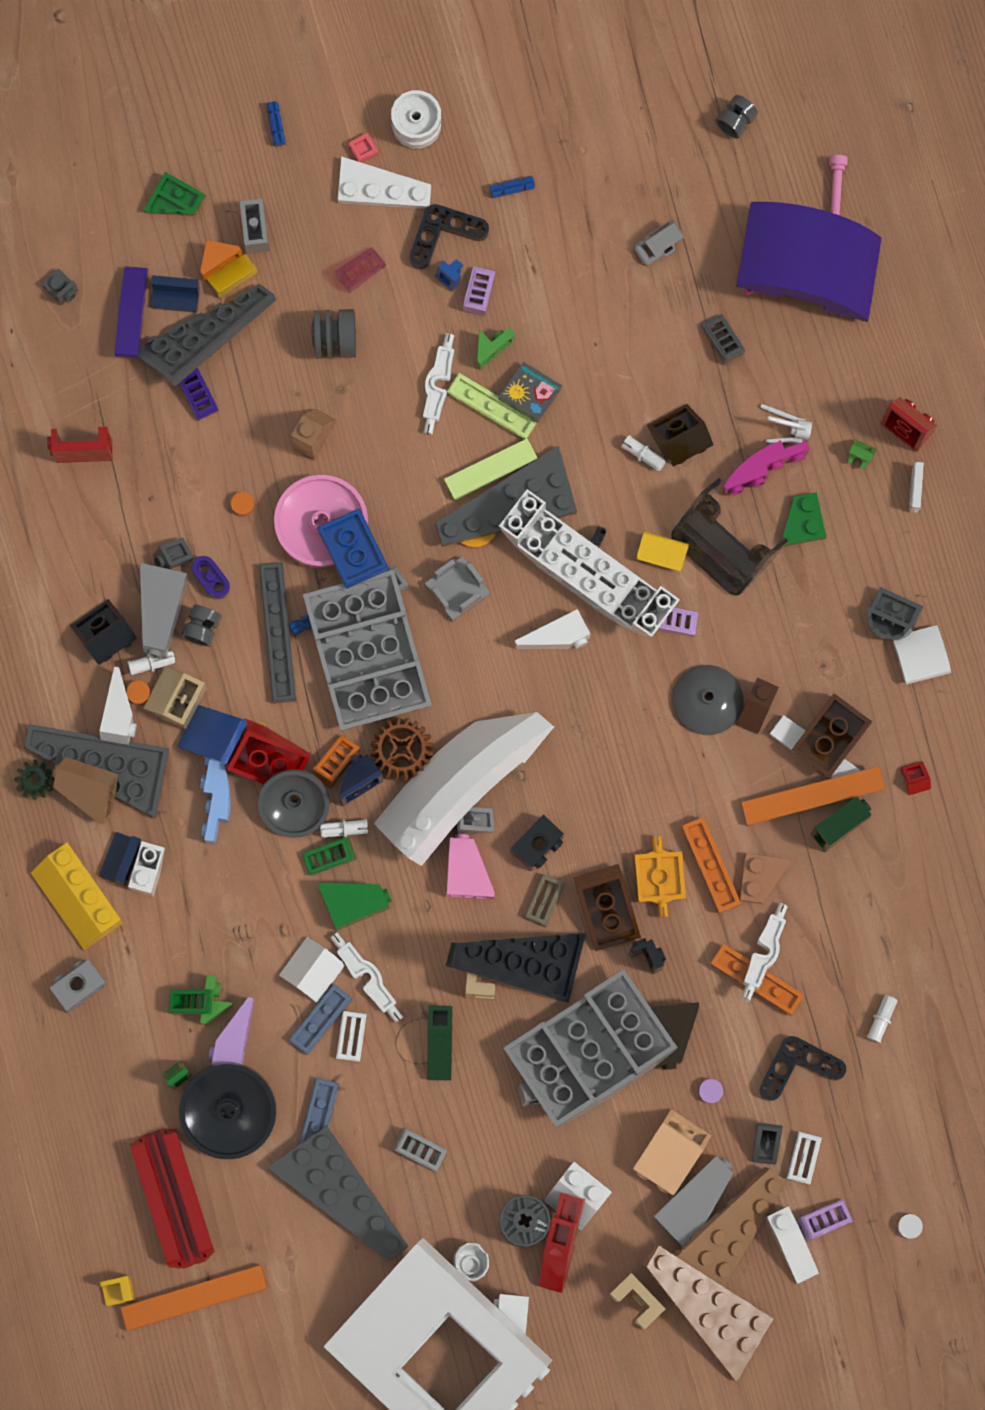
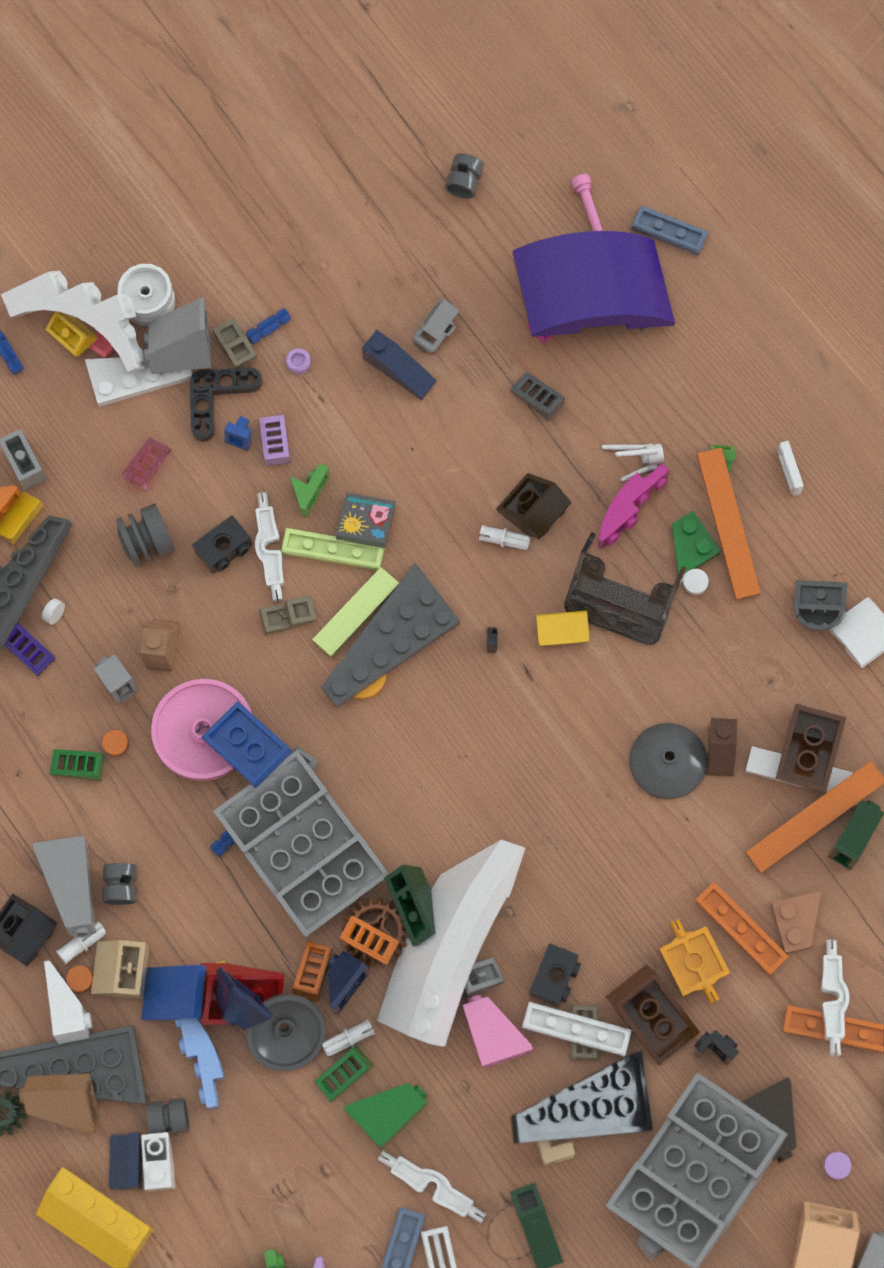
camera: 15 degrees left, 5 degrees down
(169, 835) = (168, 1117): none -> dark grey wheel
(172, 554) = (62, 822): dark grey bracket -> none
(211, 577) = (111, 831): dark purple plate -> none
(220, 517) = (95, 775): none -> green slope
(231, 369) = (53, 611): none -> white tile
(263, 449) = (115, 678): none -> light grey brick
(263, 763) = (239, 1002): none -> dark blue slope
(277, 632) = (201, 861): dark grey tile -> none
(312, 969) = (372, 1201): white slope -> none
(337, 127) = (70, 333): none -> yellow slope
(358, 106) = (84, 302): none -> white arch
(386, 759) = (345, 938): none -> orange slope
(406, 356) = (227, 531): none -> black brick
(429, 171) = (179, 339): none -> light grey slope
(431, 450) = (288, 615): none -> dark tan slope
(442, 735) = (412, 901): none -> dark green slope
(457, 587) = (368, 744): light grey panel -> none
(477, 191) = (234, 343): none -> dark tan slope
(526, 228) = (298, 361): none -> lavender tile
(538, 894) = (576, 1029): none -> white tile
(560, 634) = (492, 751): white slope -> none
(585, 568) = (493, 674): white slope -> none
(611, 265) = (397, 364): none -> dark blue slope
(680, 630) = (603, 702): lavender slope -> none
(793, 555) = (695, 582): none -> white tile
(842, 515) = (728, 523): none -> orange tile
(899, 234) = (669, 230): none -> sand blue tile
(908, 423) = (756, 409): red slope -> none

